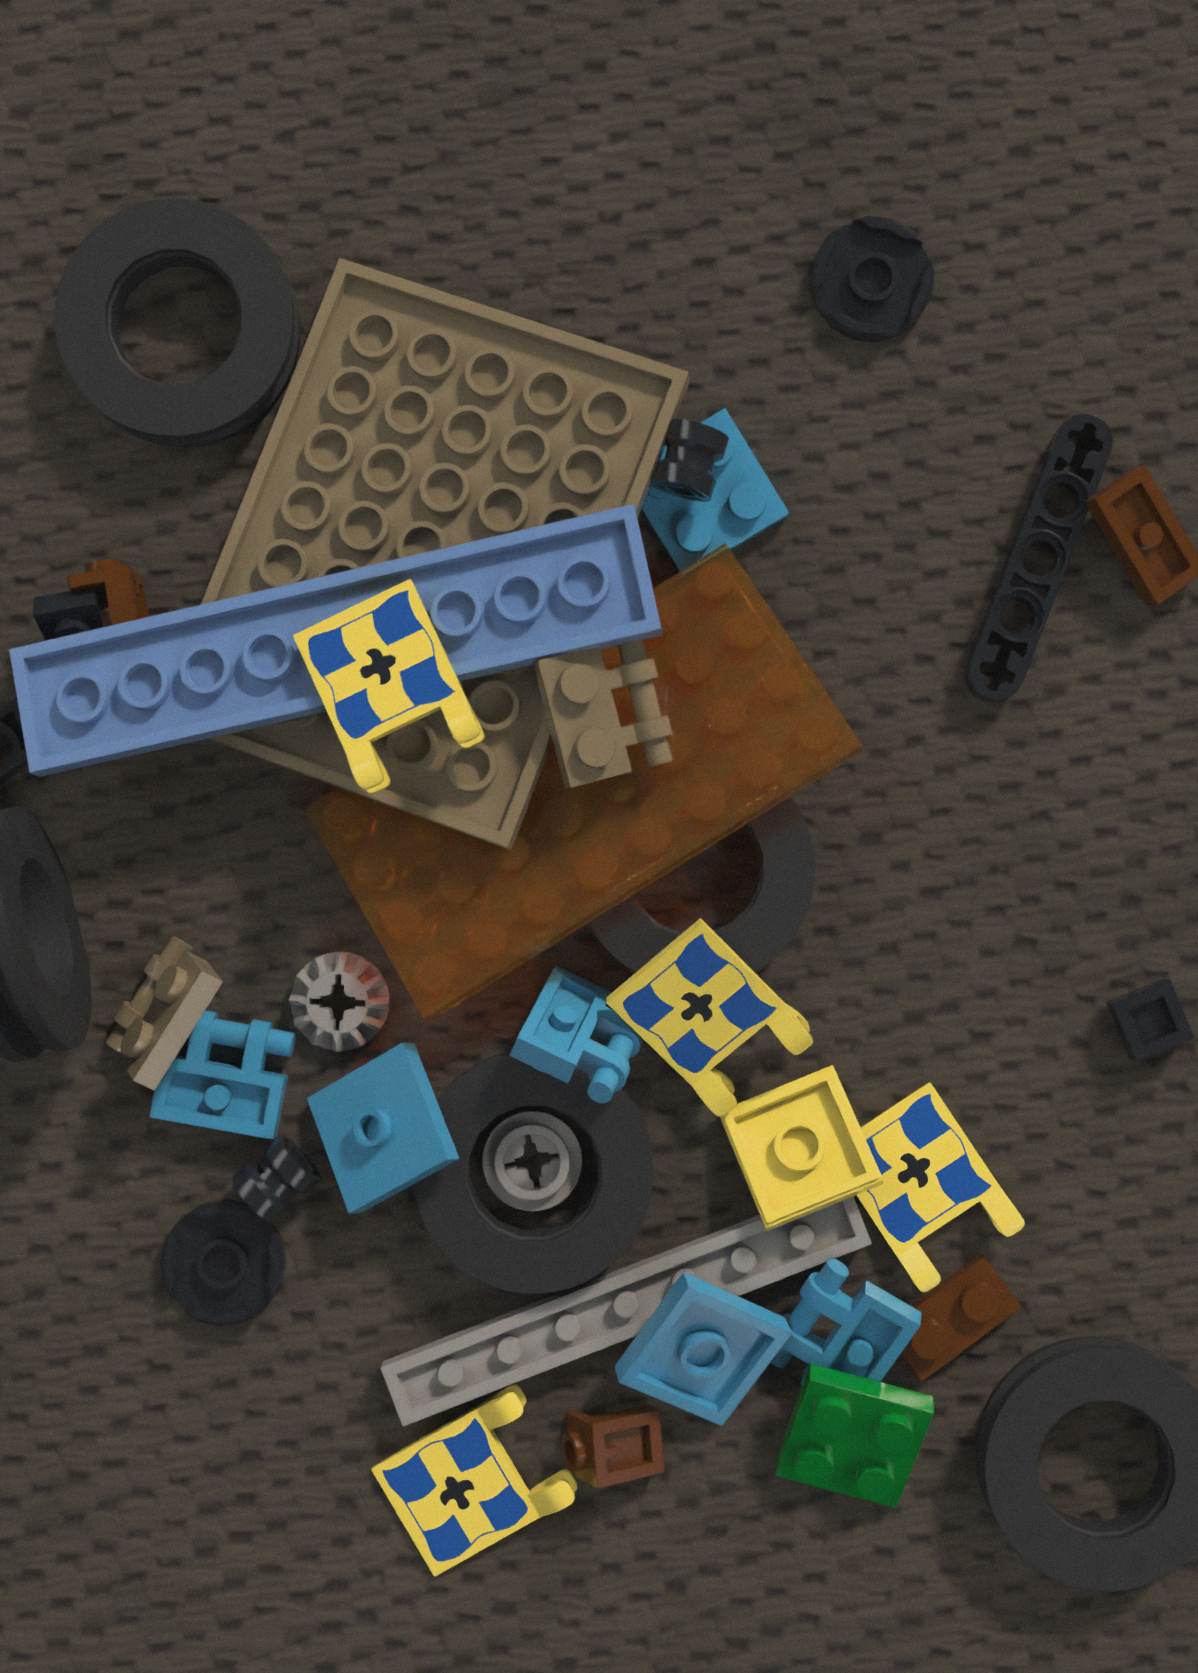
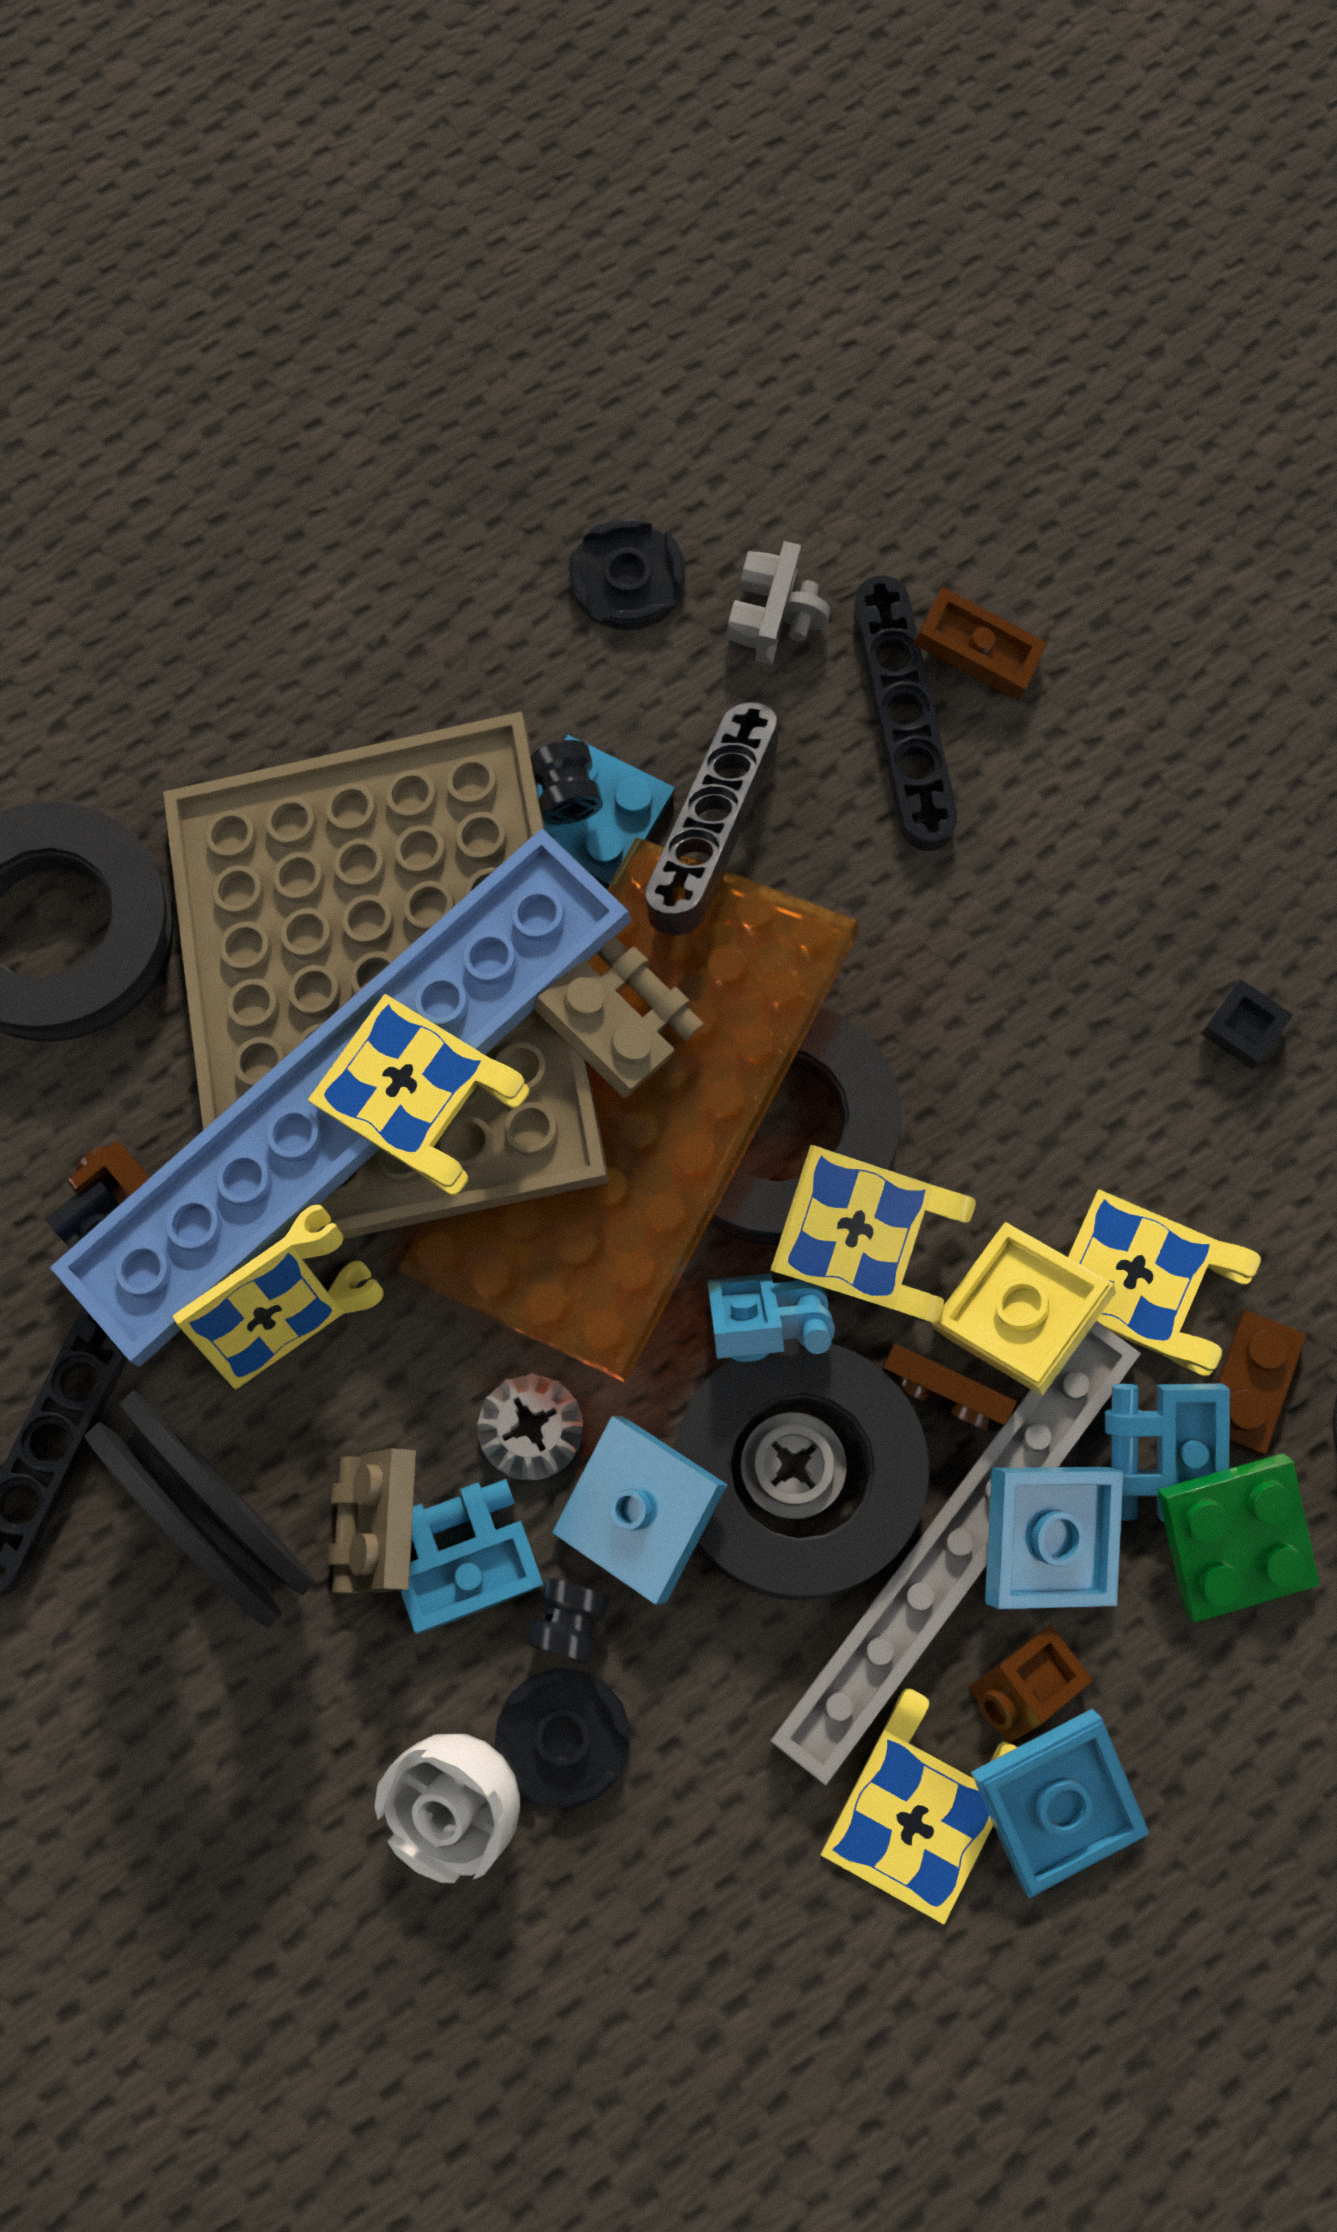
camera: 35 degrees left, 15 degrees down
(99, 1271) = (449, 1806): none -> white cylinder
(183, 783) = (275, 1301): none -> light yellow flag
(577, 1549) = (1060, 1803): none -> dark azure plate
(708, 1194) = (973, 1401): none -> reddish brown plate
(783, 587) = (711, 837): none -> black beam
(1000, 364) = (775, 578): none -> light grey hips

